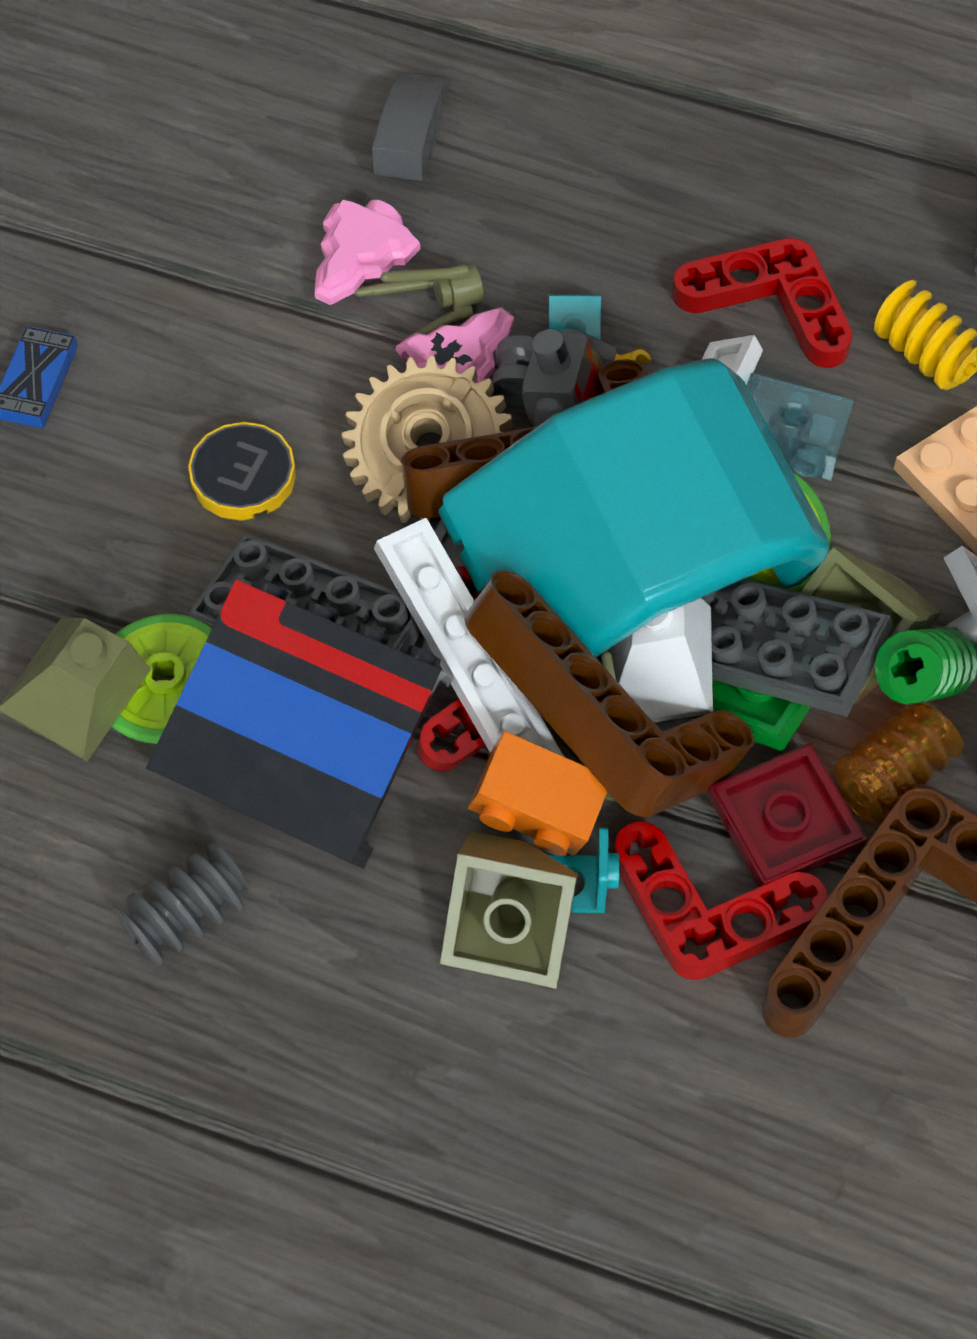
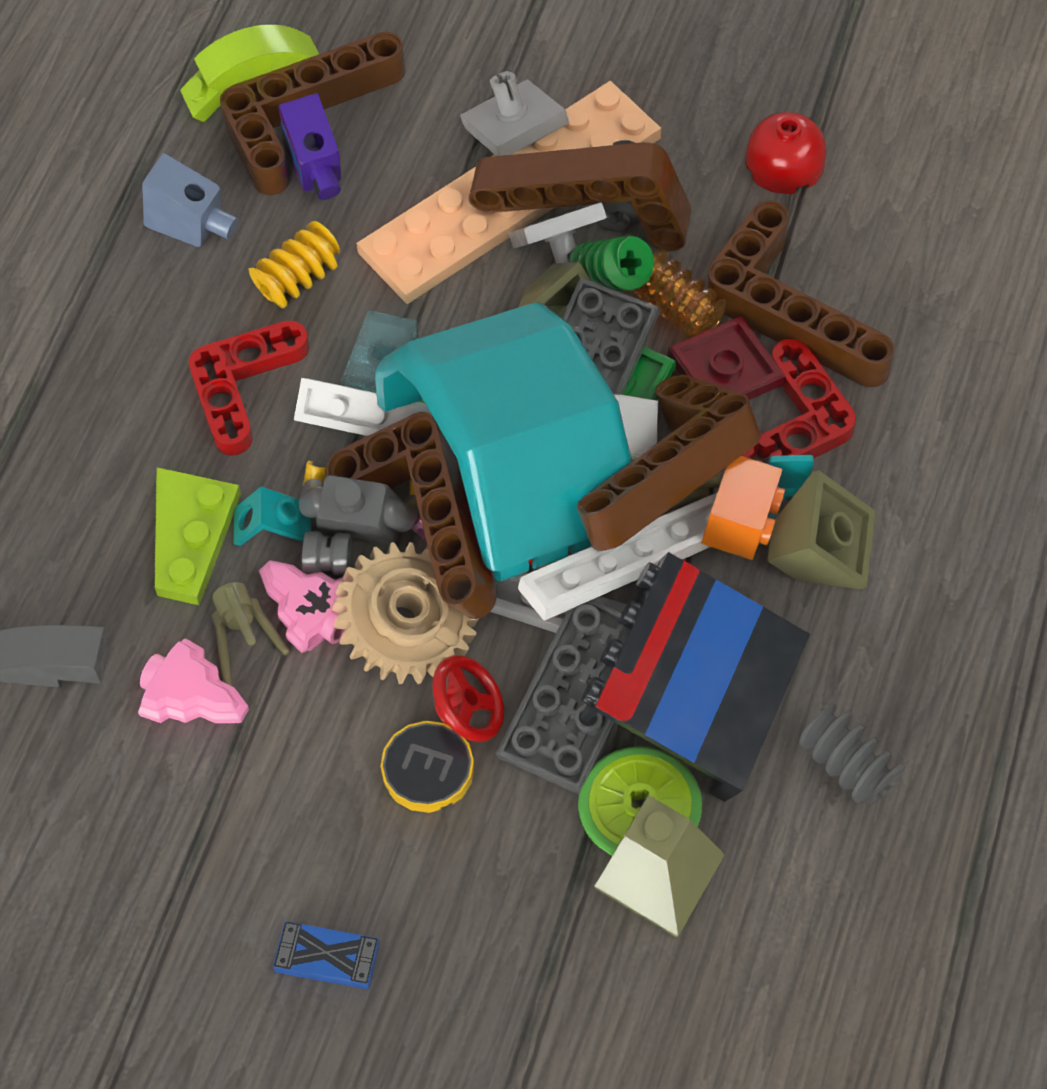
camera: 90 degrees left, 0 degrees up
(341, 473) = (462, 699): none -> red piece
(564, 251) = (190, 531): none -> lime wing

